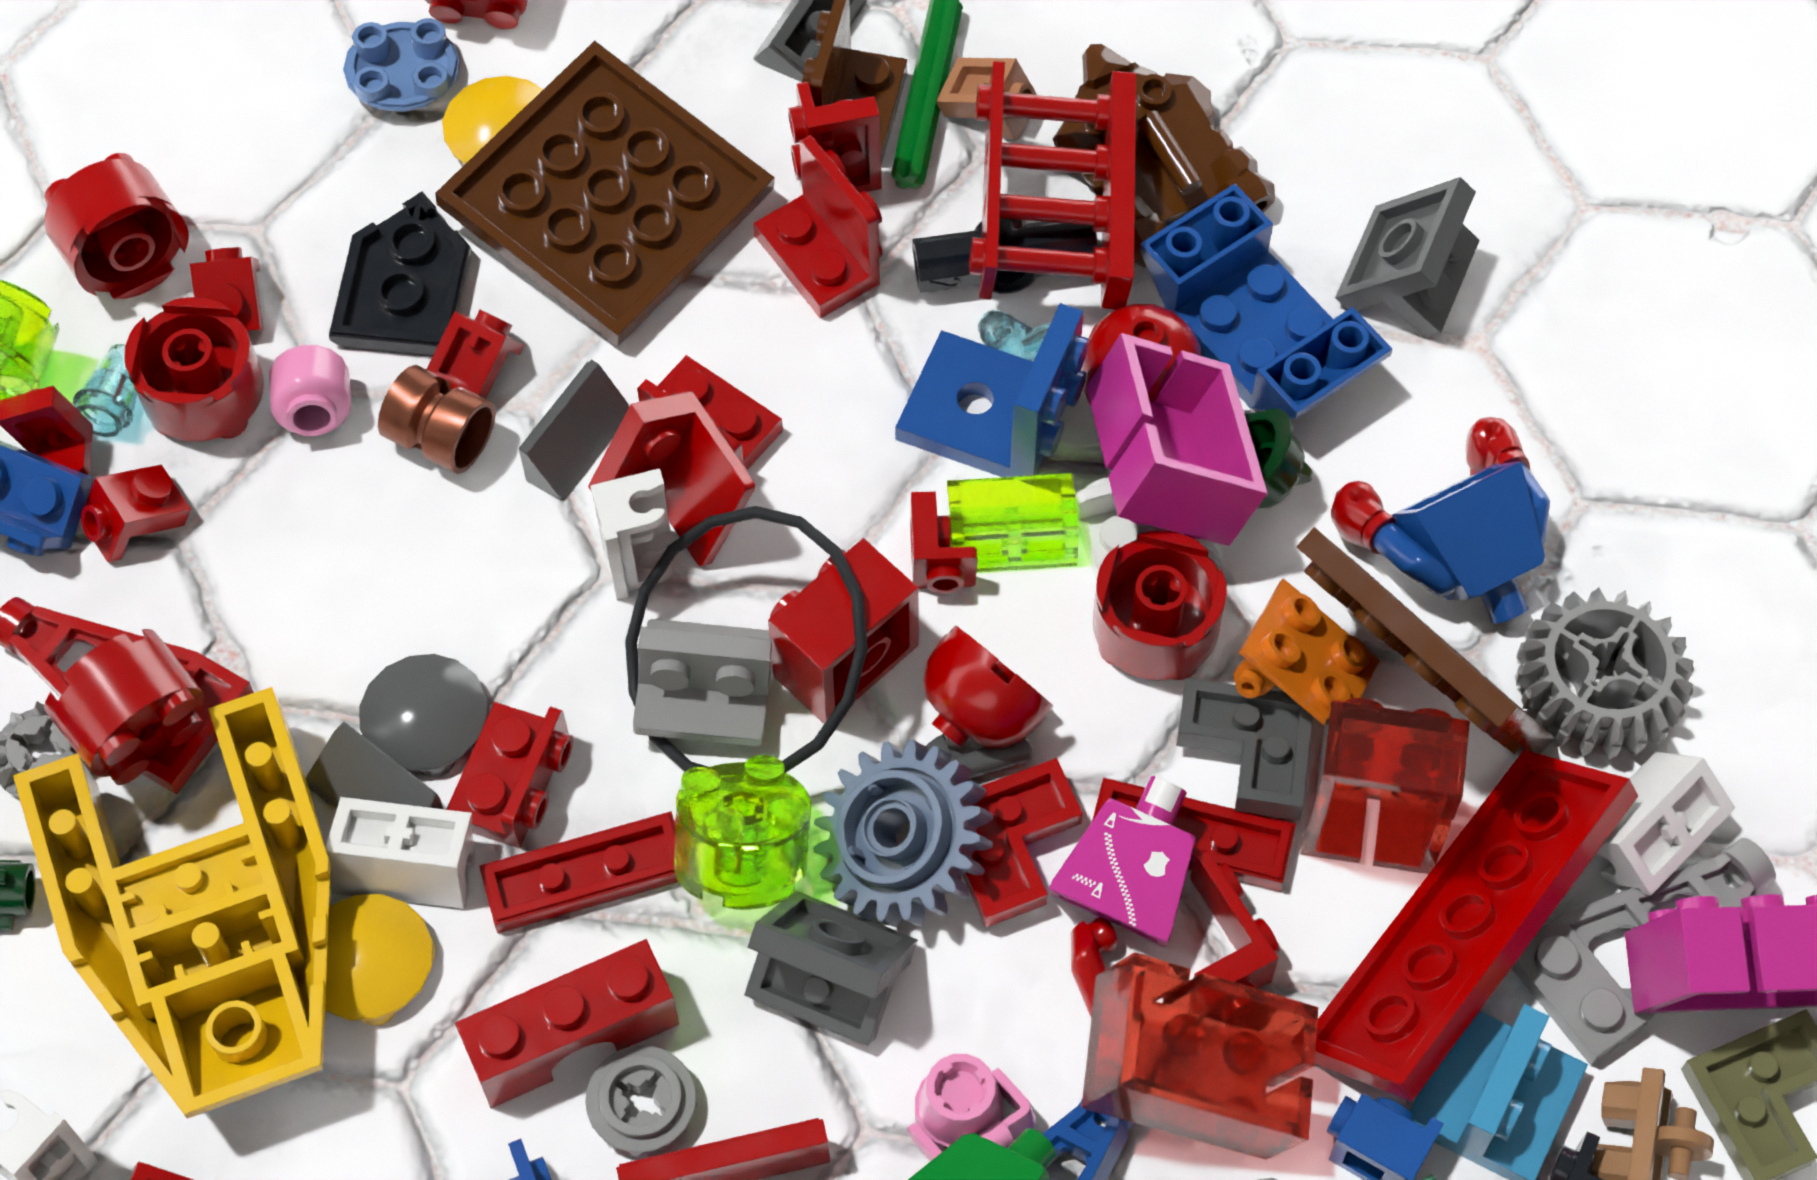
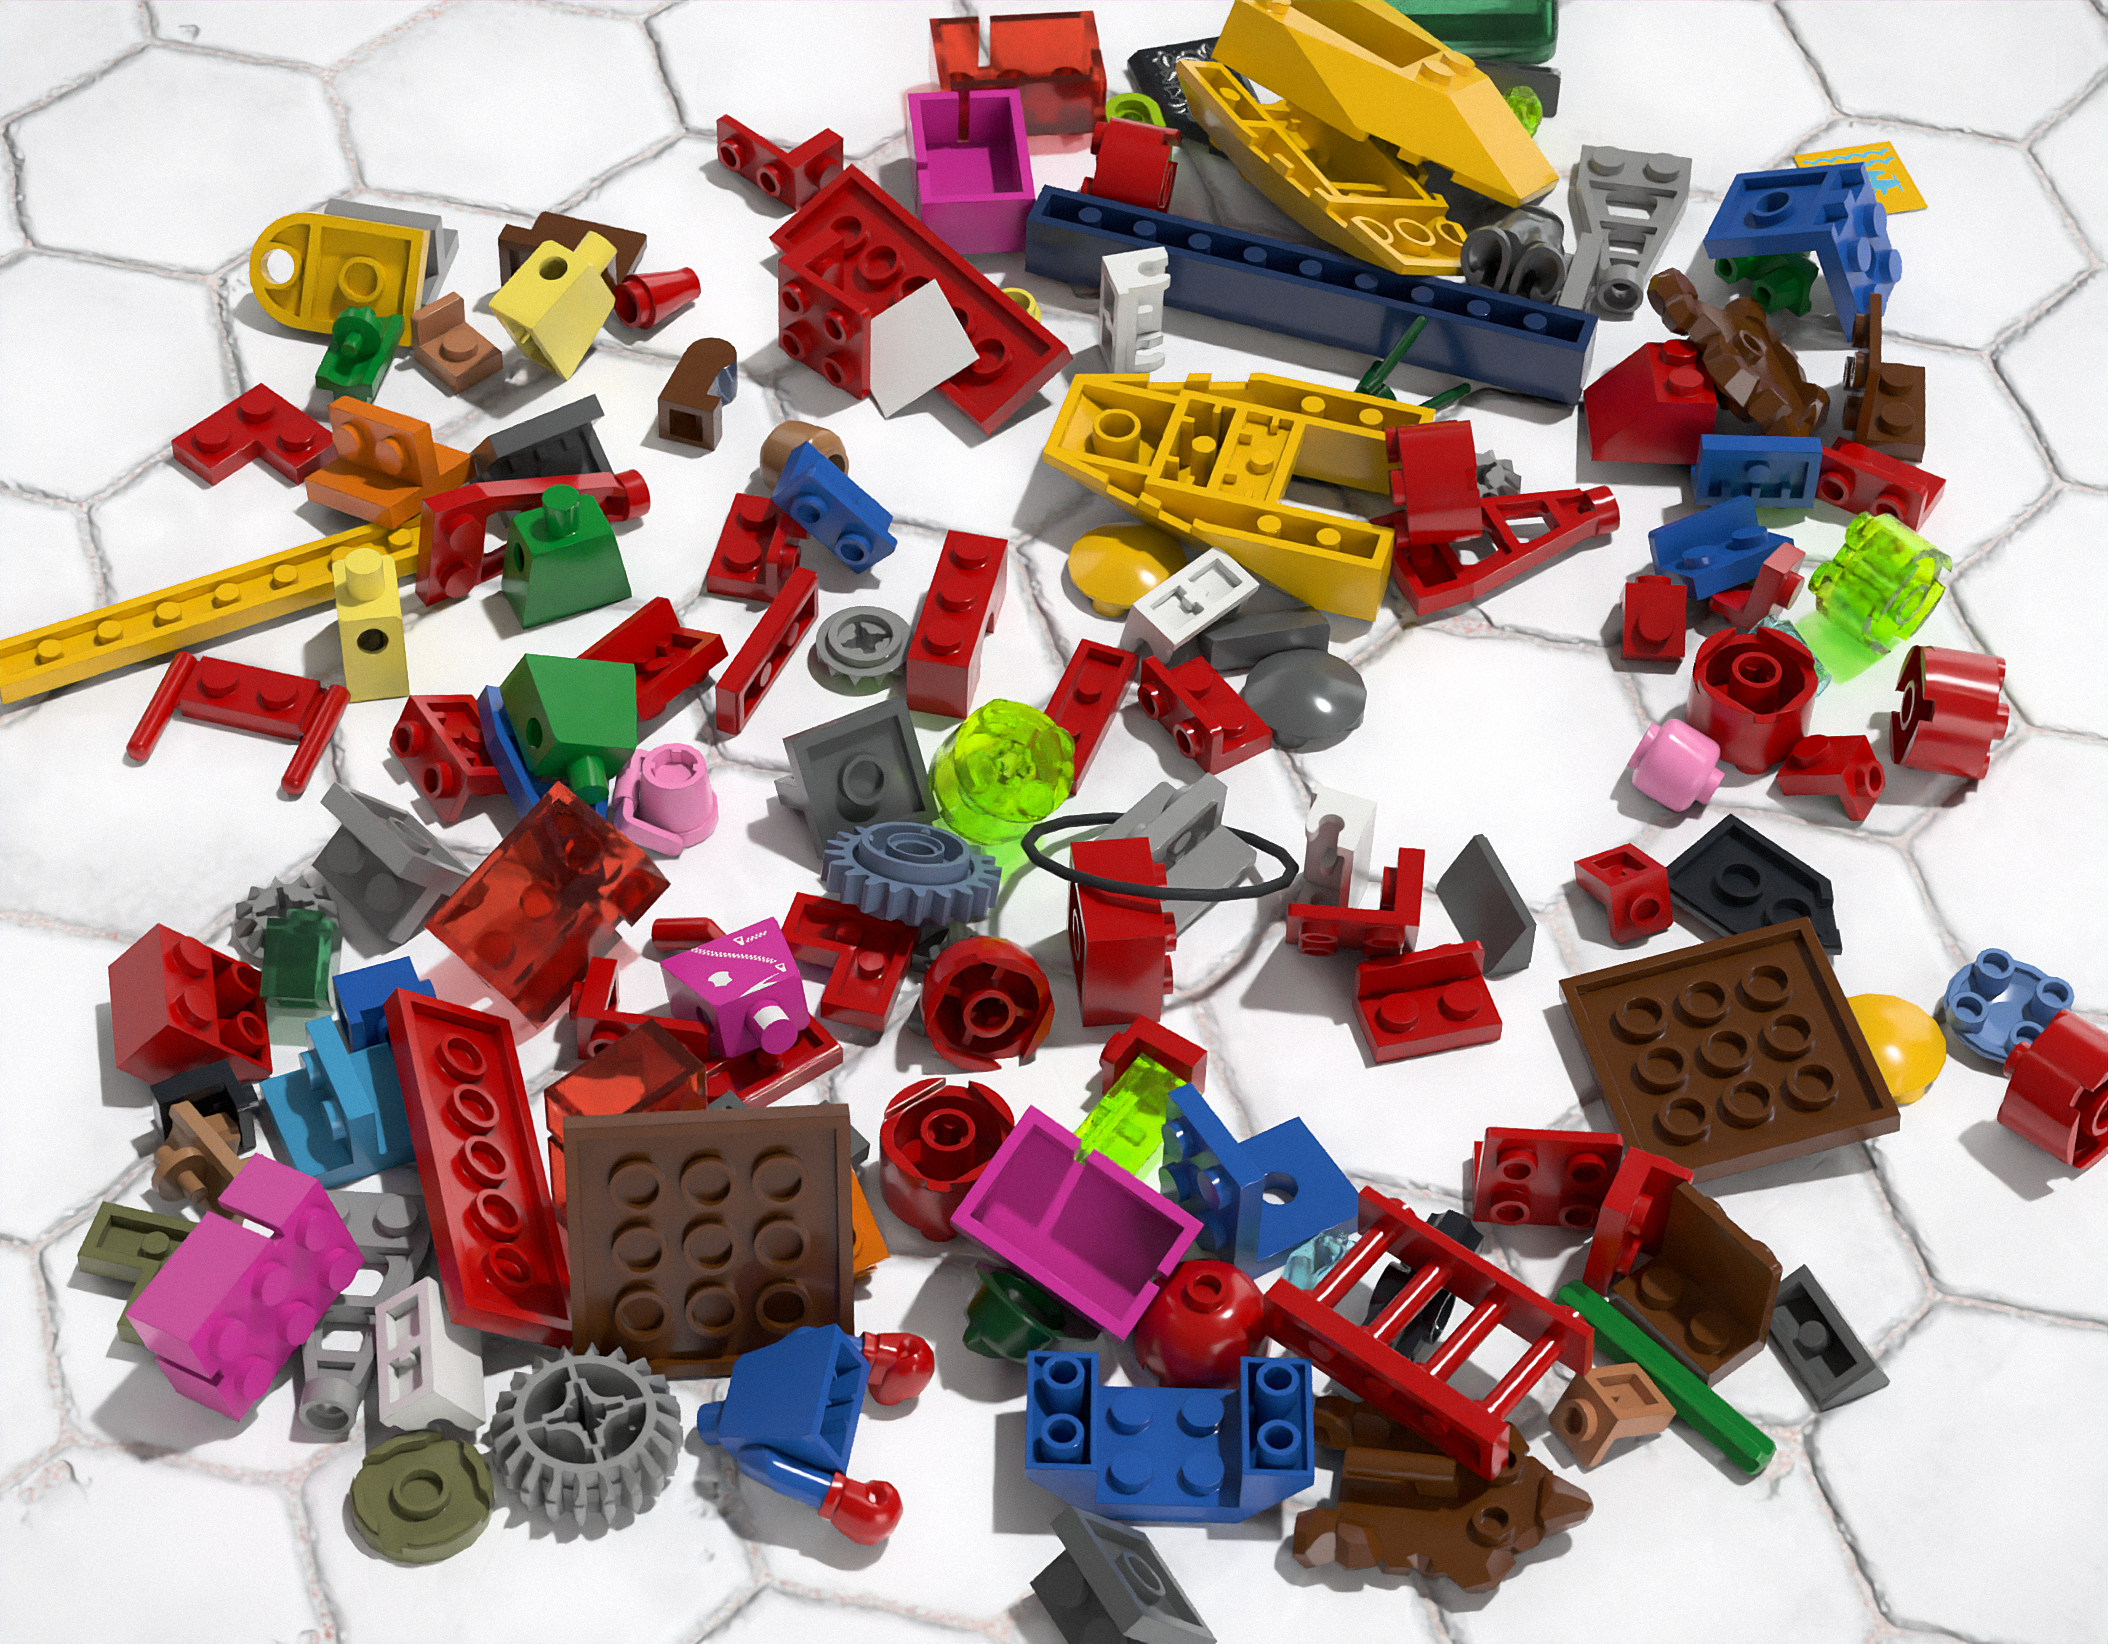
camera: 125 degrees right, 15 degrees down
(440, 420) = (1571, 820): copper wheel -> none
(1750, 750) = (422, 1497): none -> olive tile

